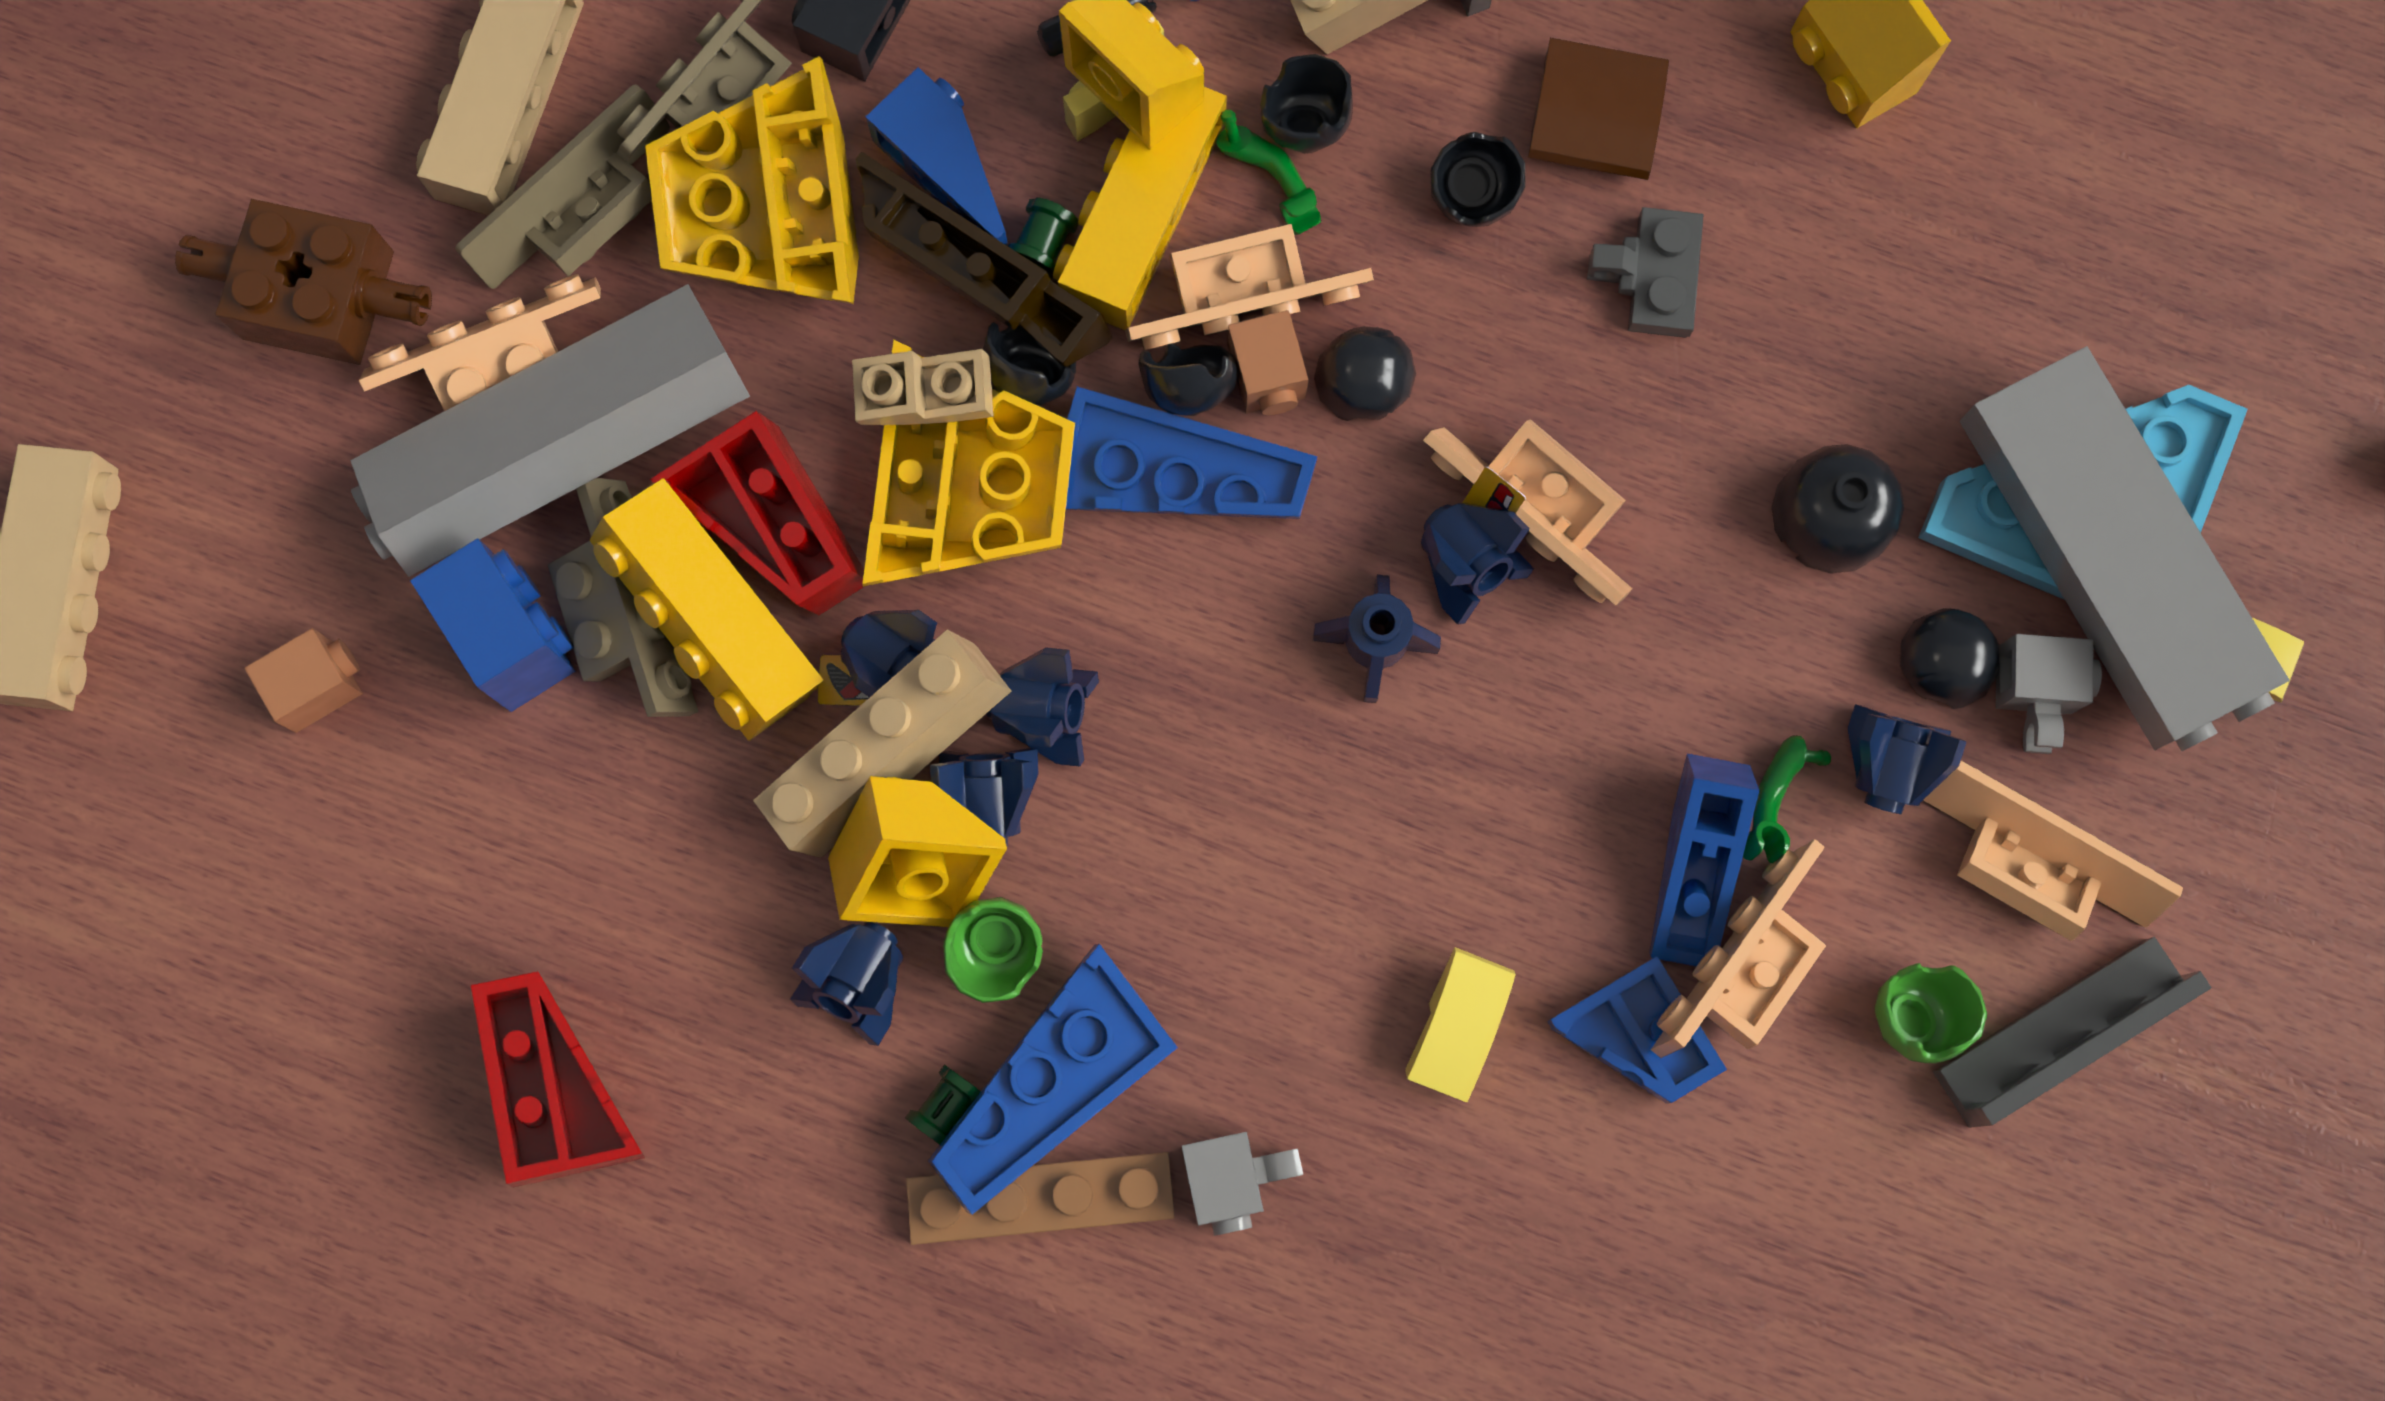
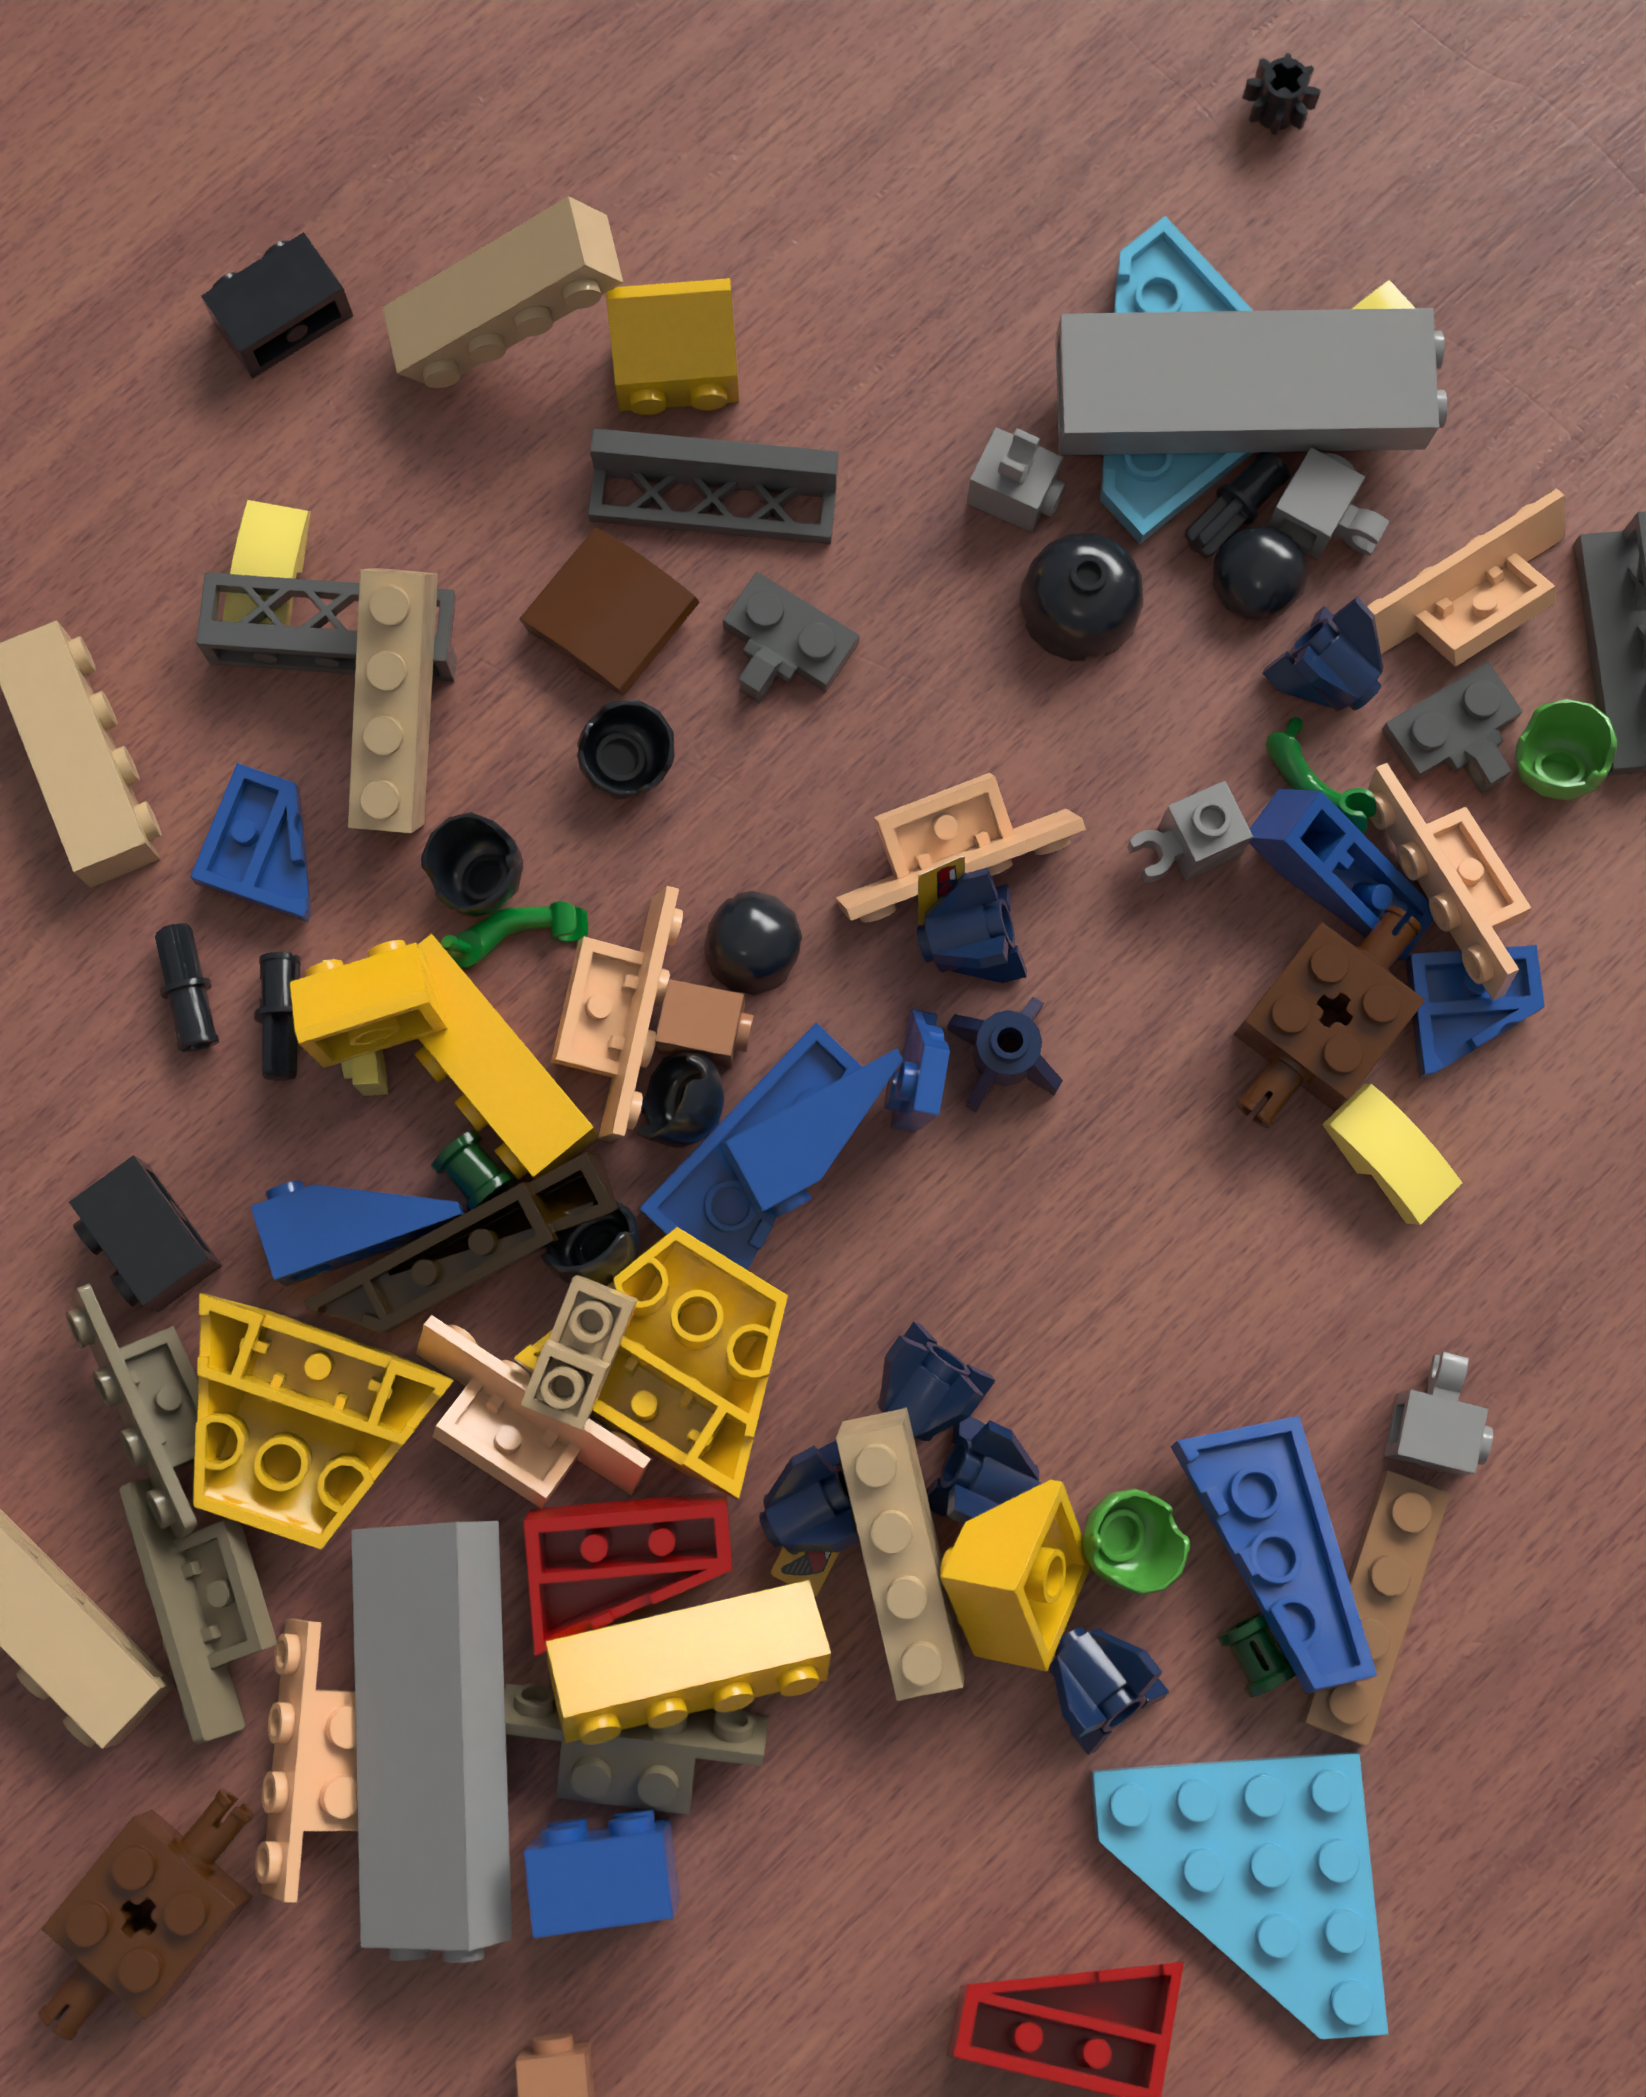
camera: 65 degrees left, 0 degrees up
(761, 1202) = (1266, 1869): none -> medium azure plate
(821, 379) = (510, 1440): none -> light nougat bracket
(1203, 490) = (801, 1142): none -> blue slope
(1305, 563) = (919, 1085): none -> blue wing
(1593, 881) = (1369, 1010): none -> reddish brown brick
(1669, 712) = (1196, 834): none -> light grey brick
(1783, 133) = (713, 464): none -> dark grey fence
(1900, 907) = (1457, 729): none -> dark grey hinge
(1914, 395) = (1016, 479): none -> light grey brick
(2004, 604) = (1236, 504): none -> black axle

